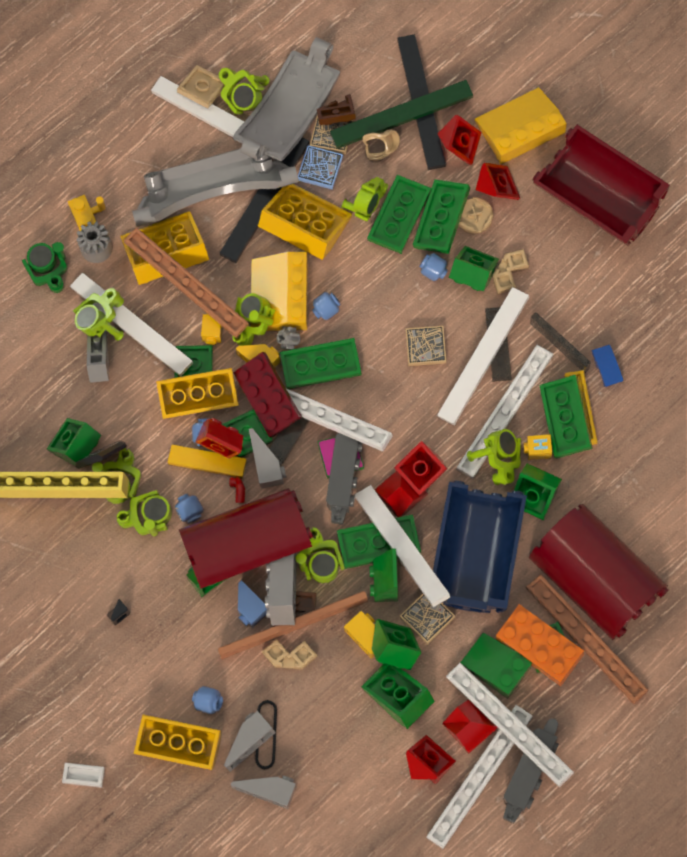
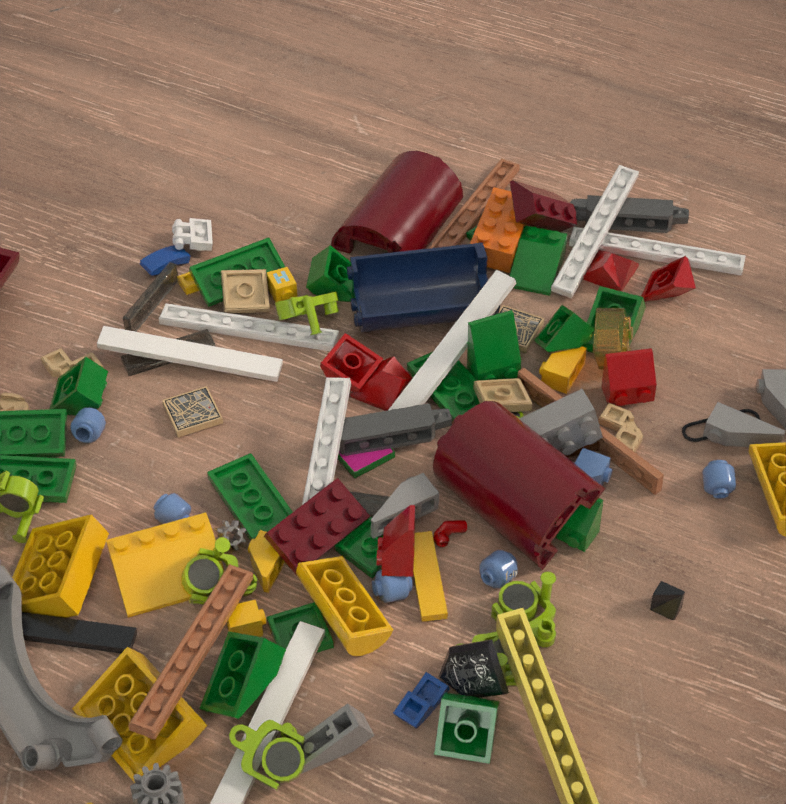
camera: 115 degrees left, 25 degrees down
(107, 423) = (422, 701): none -> blue slope
(164, 313) = (241, 674): none -> green slope
(326, 675) = (629, 377): none -> red slope
(344, 569) = (505, 391): none -> tan tile
(366, 673) = (611, 333): none -> clear yellow brick
(541, 415) = (245, 291): none -> tan tile
(543, 681) = (541, 208): none -> dark red slope
(628, 399) = (196, 233): none -> white plate

